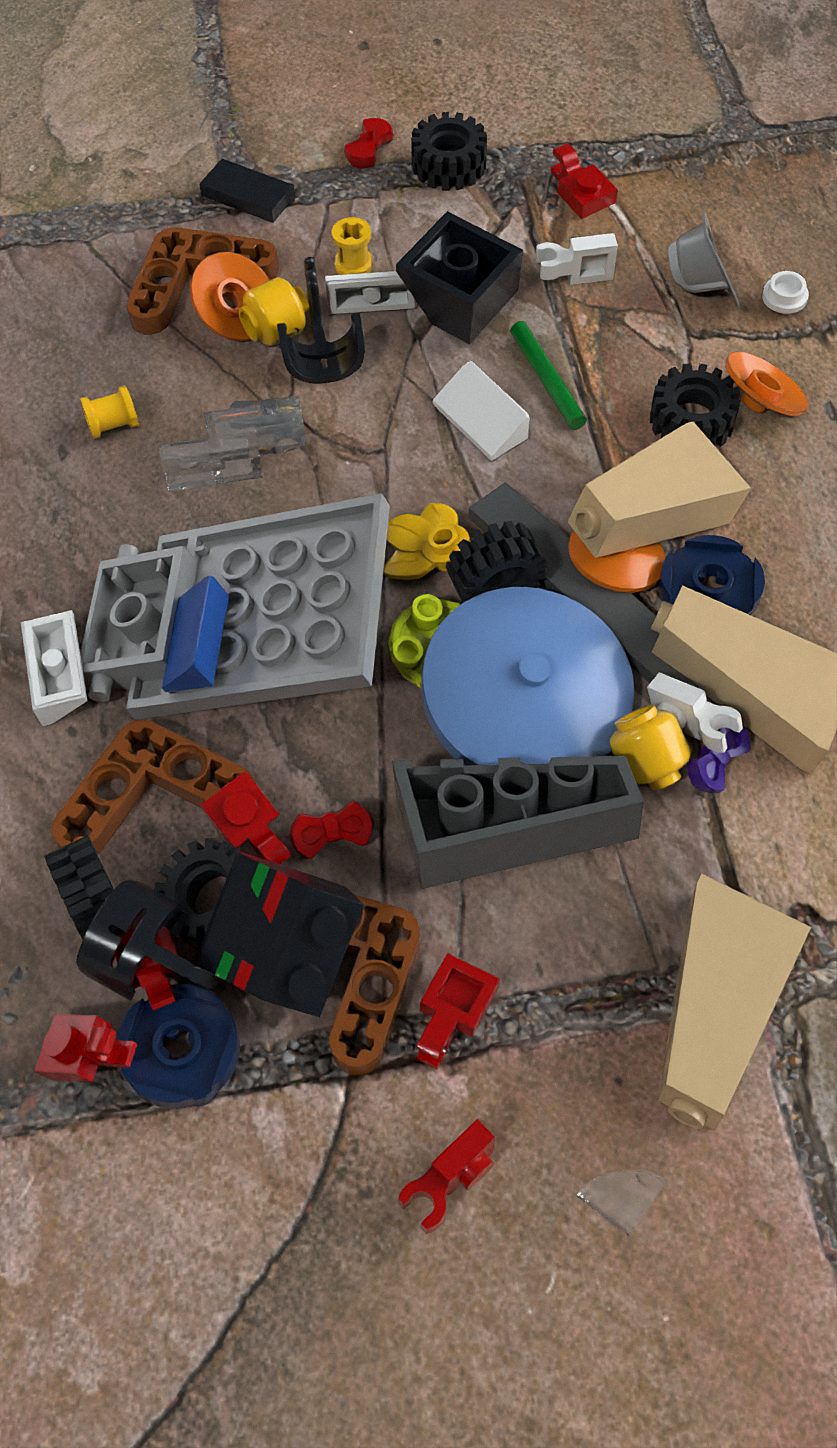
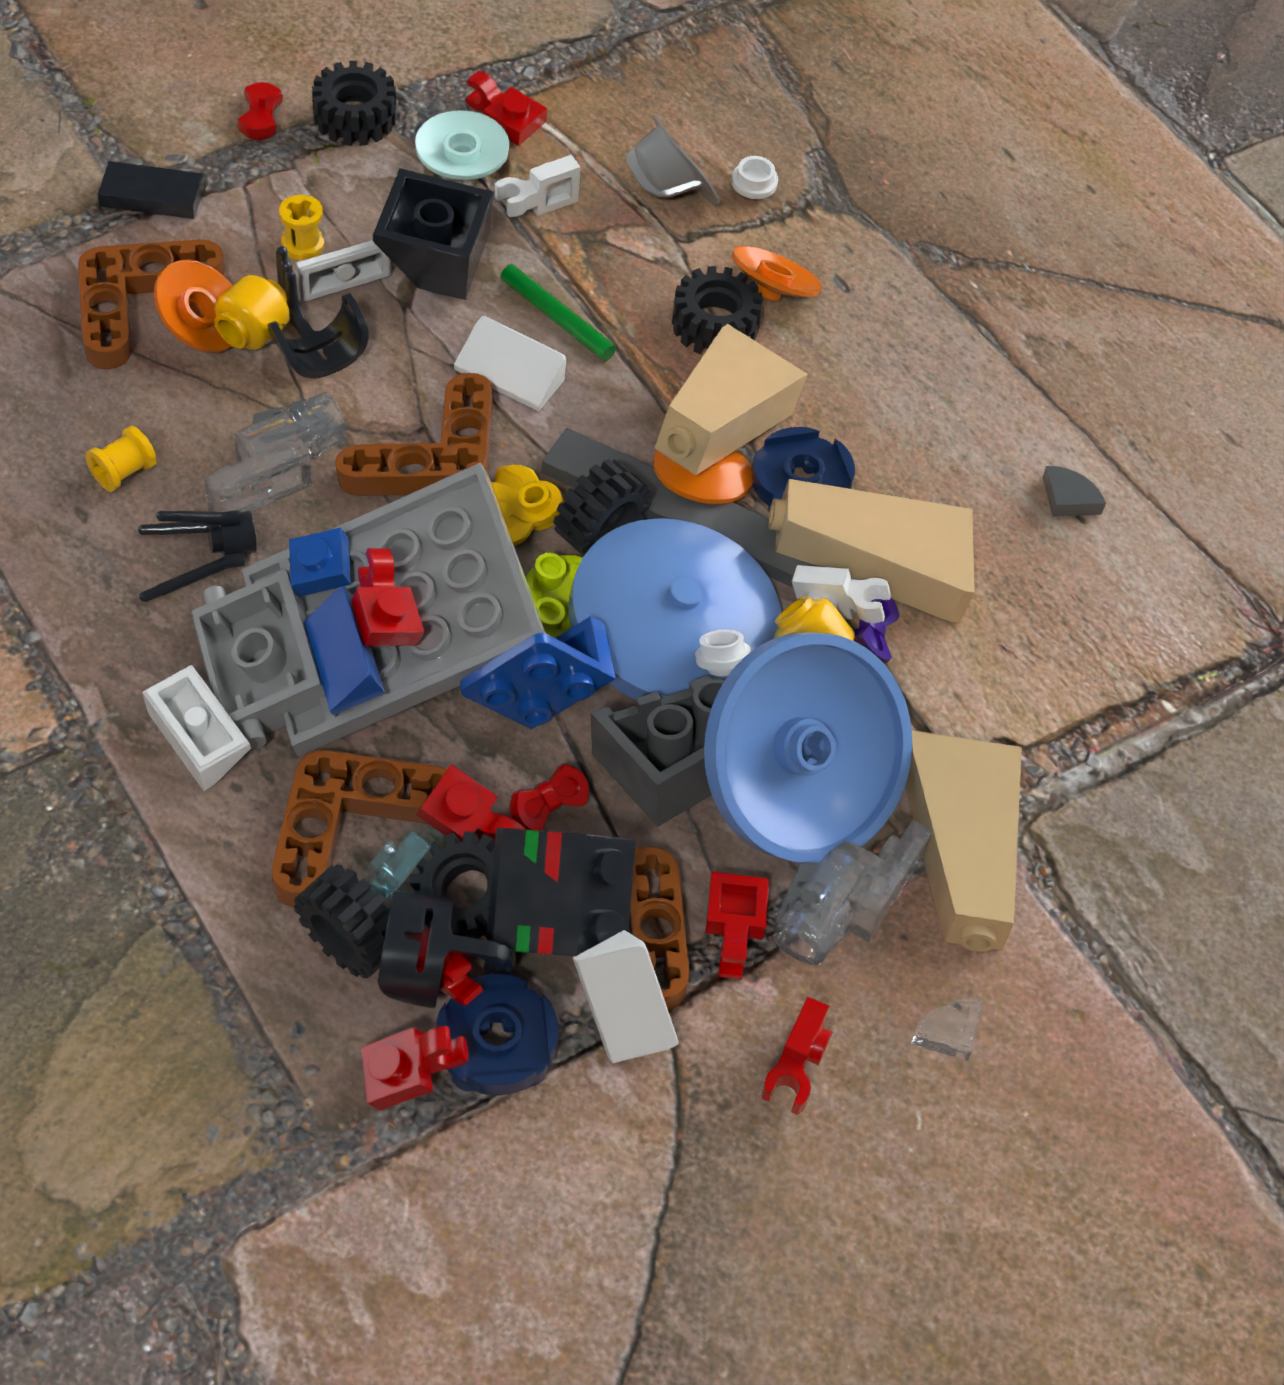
camera: 30 degrees left, 5 degrees down
(144, 853) = (395, 863): none -> clear light blue plate
(163, 500) = (227, 533): none -> black plant
(213, 547) = (319, 562): none -> blue plate
(237, 608) = (382, 611): none -> red plate
(298, 1056) = (625, 998): none -> white slope
(318, 474) = (448, 454): none -> dark orange beam
(362, 715) = (544, 674): none -> blue bracket
(525, 206) = (462, 145): none -> light aqua dish
(543, 738) = (721, 651): none -> white plate
(573, 1017) = (846, 894): none -> clear plate
(583, 861) = (808, 746): none -> medium blue dish

